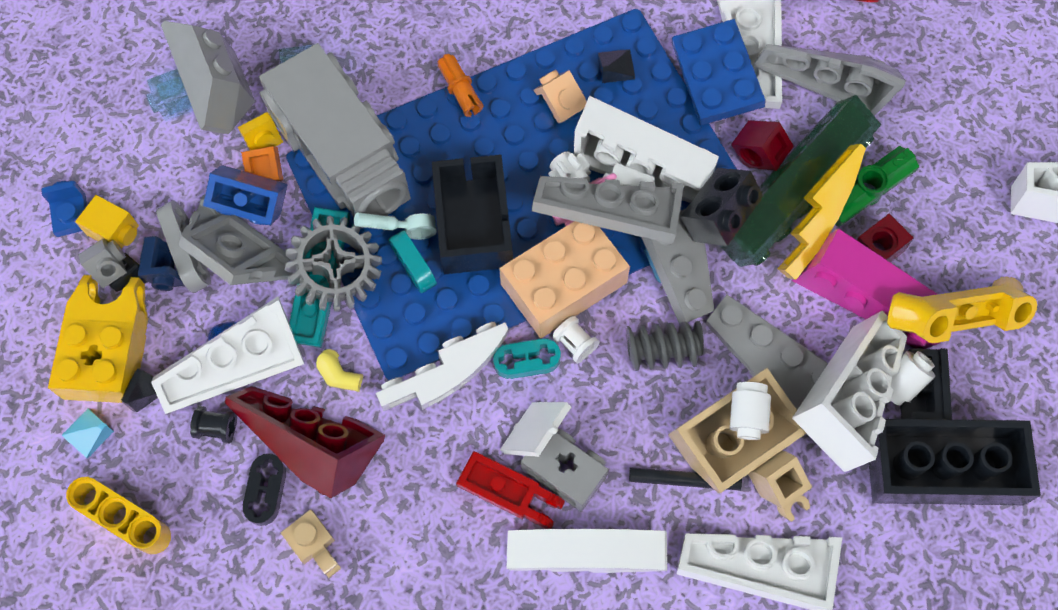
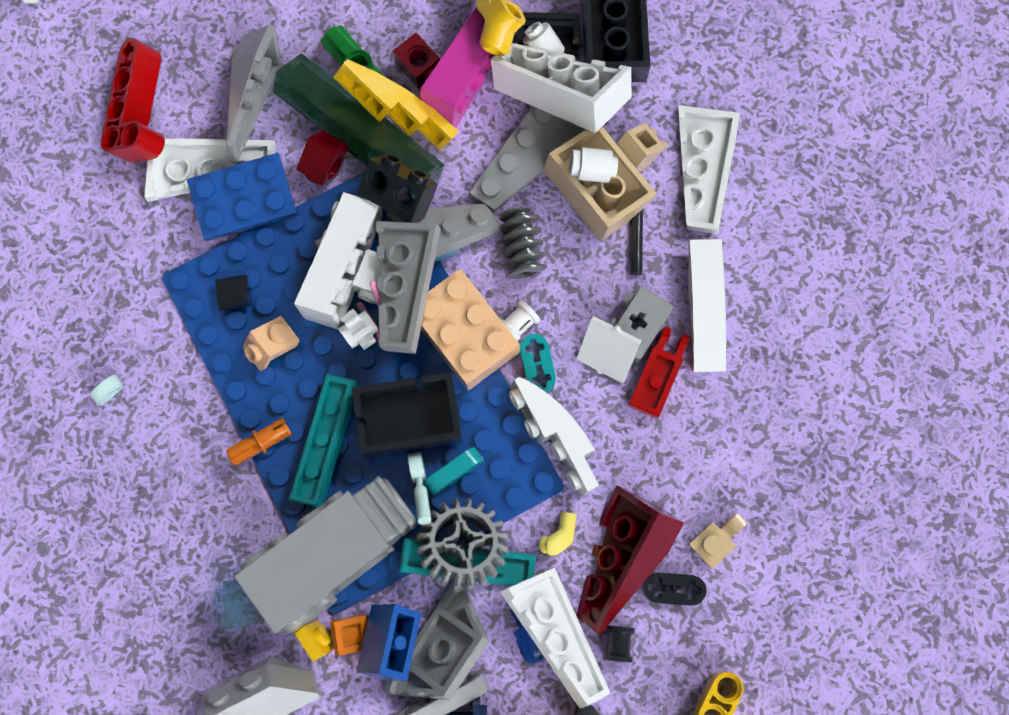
camera: 95 degrees left, 10 degrees up
(454, 141) = (323, 441): none -> teal tile

